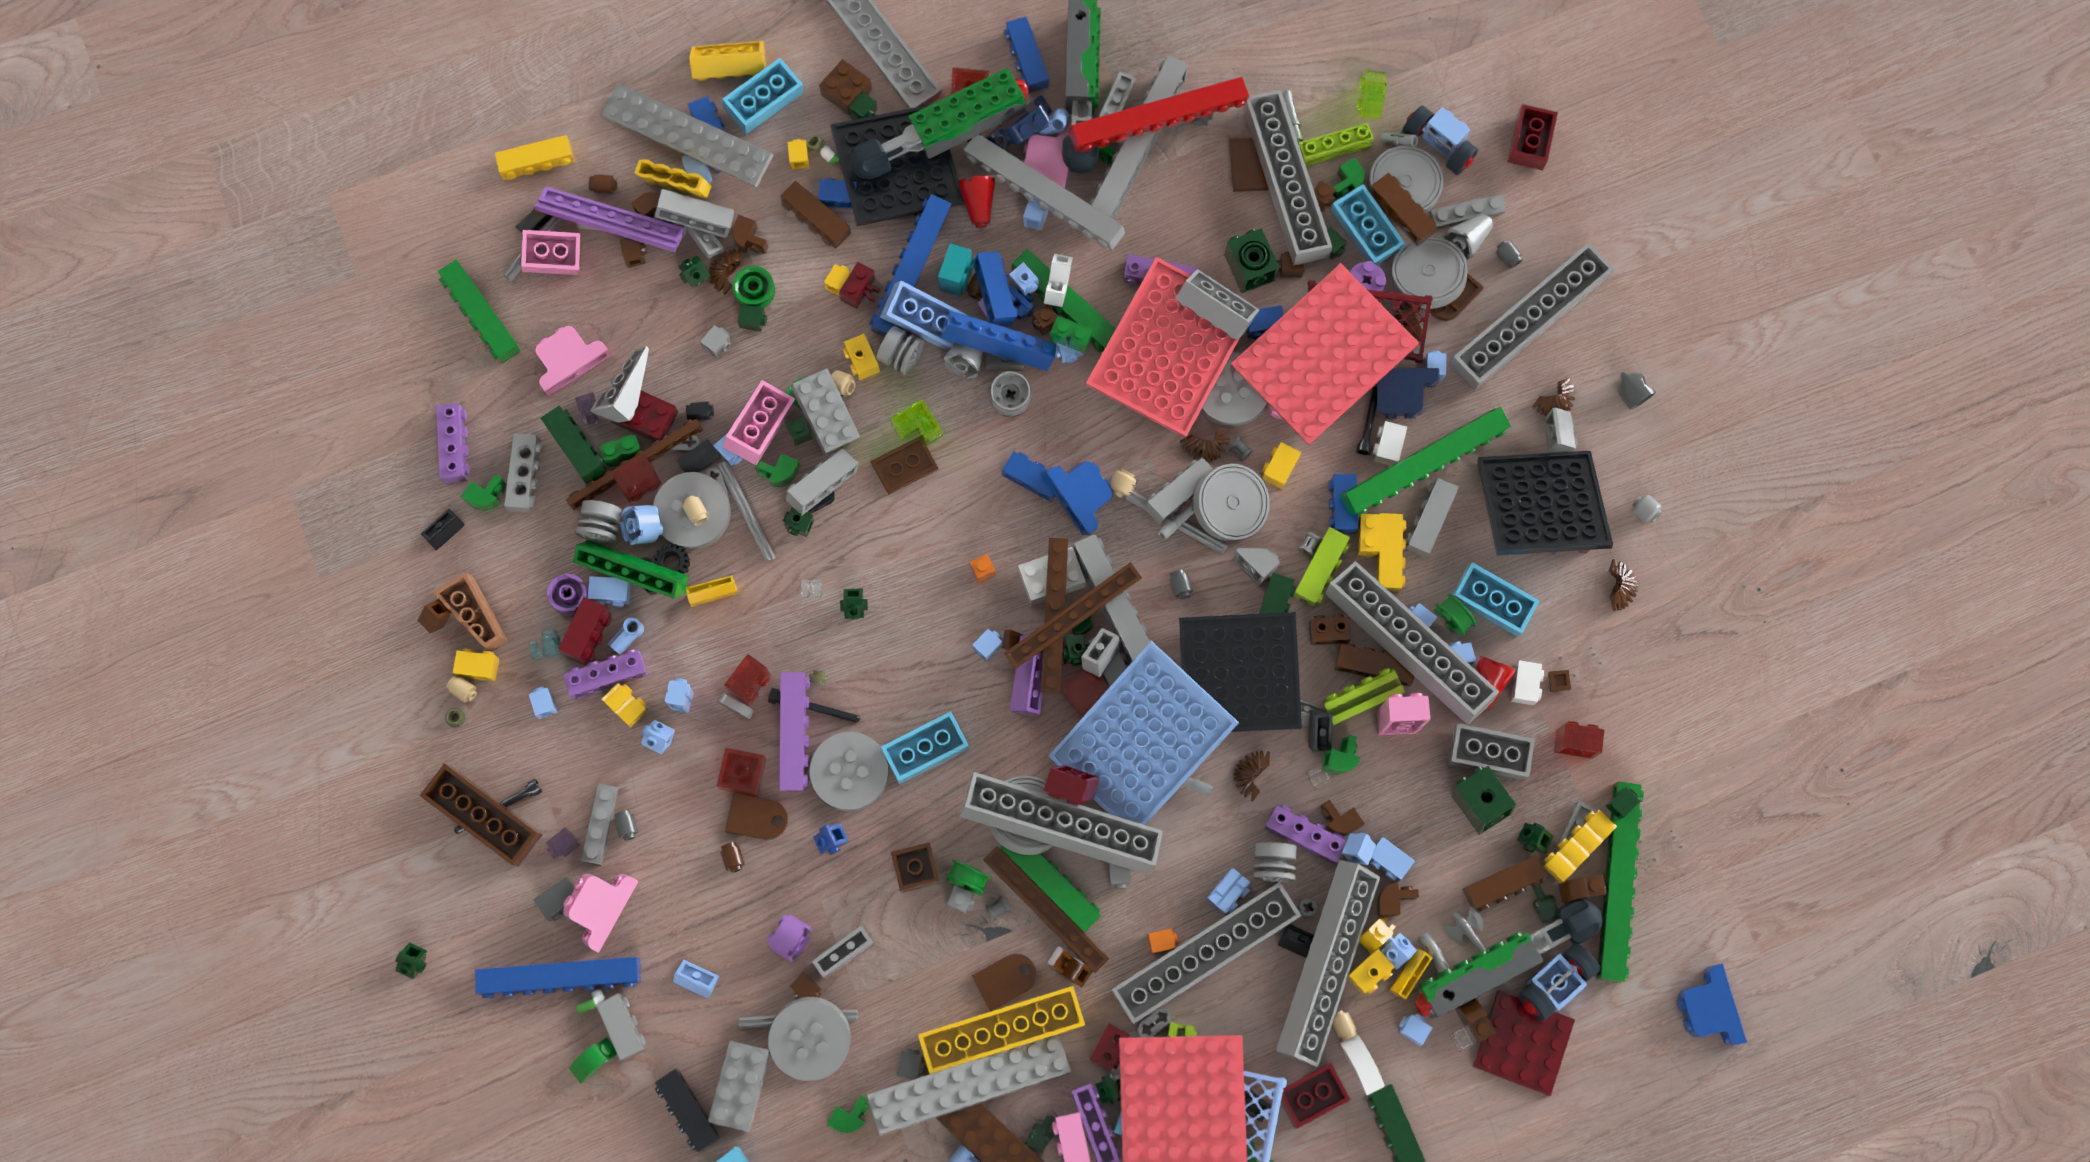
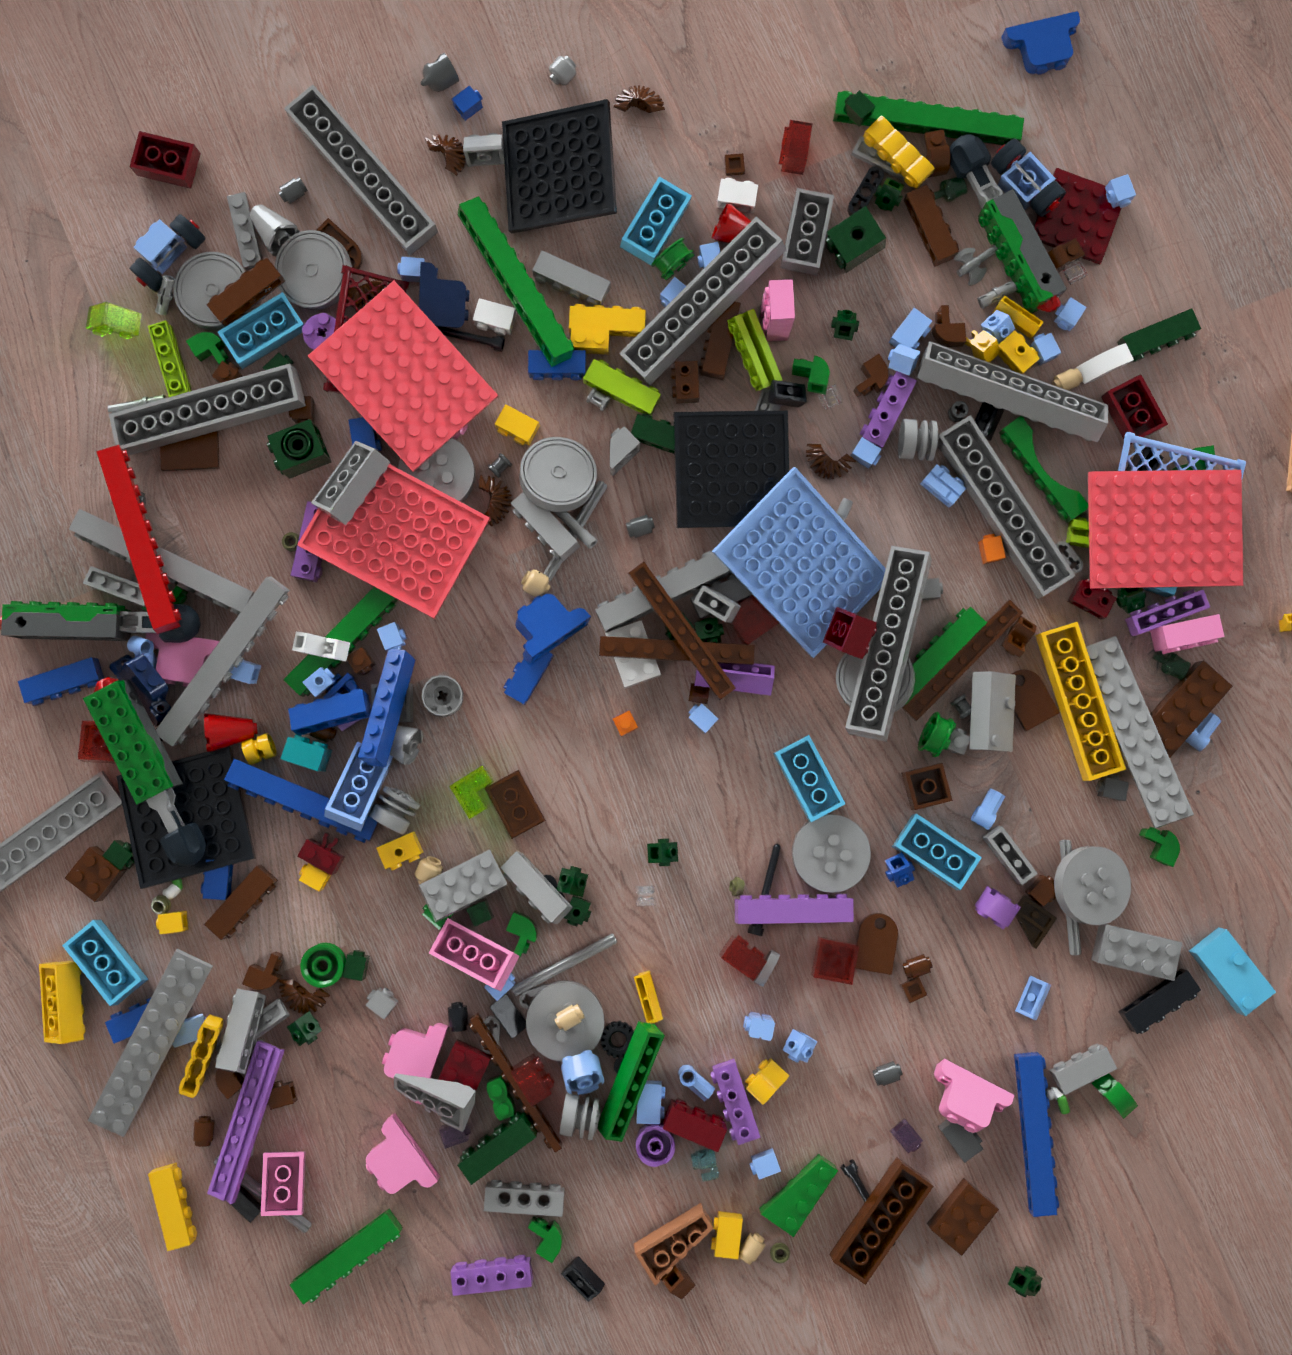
camera: 90 degrees left, 10 degrees up
(479, 899) = (962, 1216): none -> reddish brown brick
(506, 732) = (797, 1199): none -> green wedge
(599, 824) = (885, 1099): light grey plate -> none
(667, 372) = (414, 1052): none -> bright pink brick
(709, 853) = (913, 989): none -> reddish brown plate
(775, 979) = (1034, 921): none -> dark brown wing
(827, 517) = (572, 881): none -> dark green brick
(848, 876) = (936, 852): none -> medium azure brick
(887, 931) = (986, 812): none -> light blue piece
(961, 228) = (257, 749): none -> yellow wheel
(991, 935) = (992, 711): none -> light grey brick
(1079, 335) = (376, 637): green piece -> none
(1162, 251) = (287, 537): none -> olive plate
(1260, 811) = (866, 453): none -> light blue brick
(1280, 973) = (1019, 438): none -> green arch
(1377, 1002) = (1046, 348): none -> light blue brick
(1394, 790) = (844, 325): none -> dark green brick
(1549, 1083) = (1120, 191): none -> light blue brick
(1553, 818) = (866, 184): none -> black beam
(1608, 417) = (467, 102): none -> blue brick

